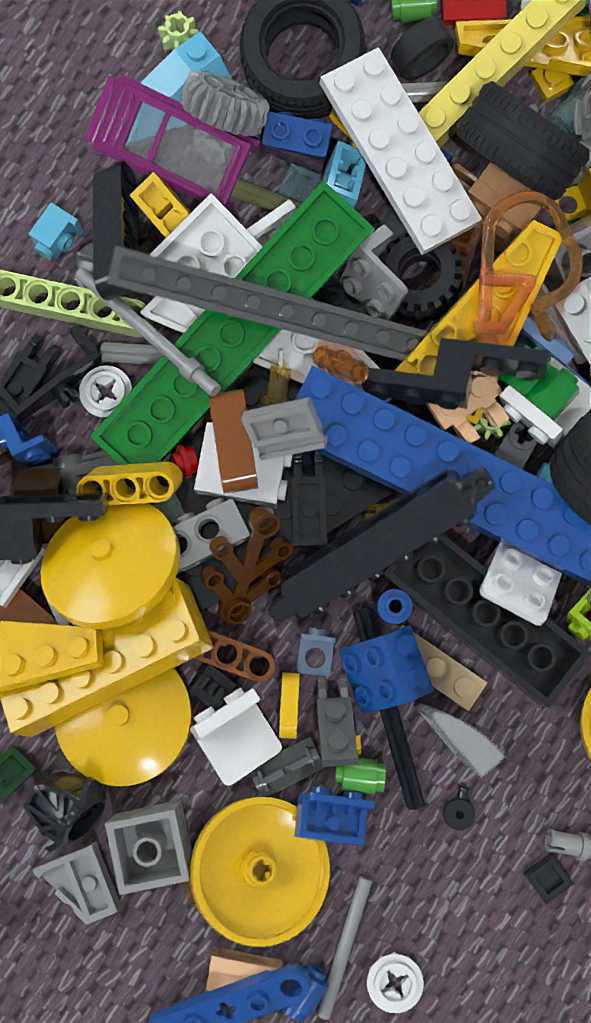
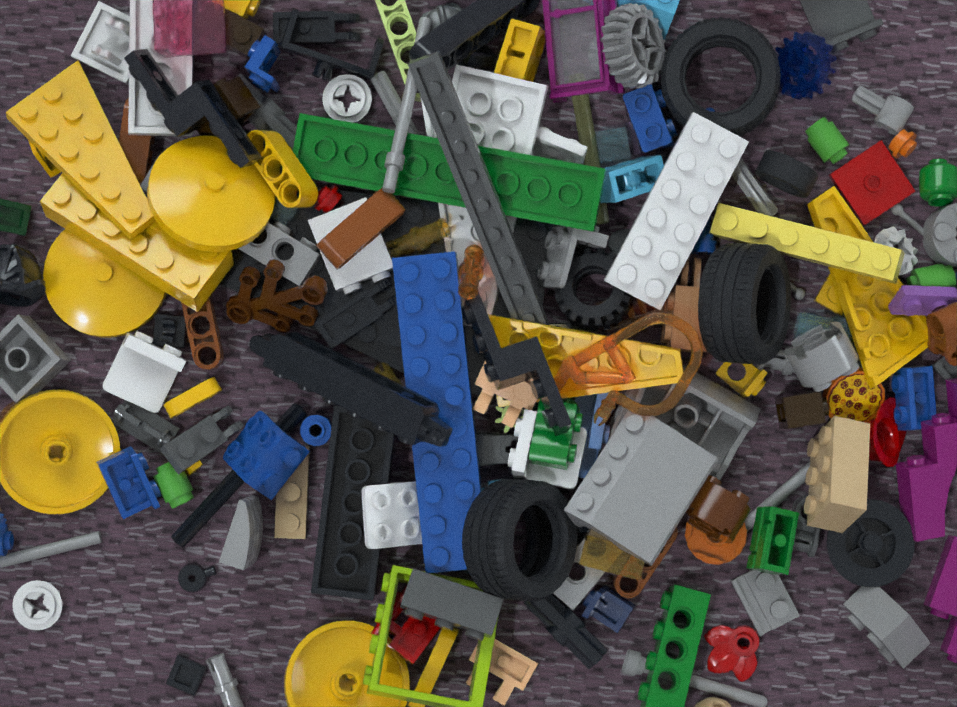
camera: 55 degrees right, 5 degrees up
(284, 428) = (390, 261): light grey plate -> none
(316, 639) = (257, 387): sand blue bracket -> none

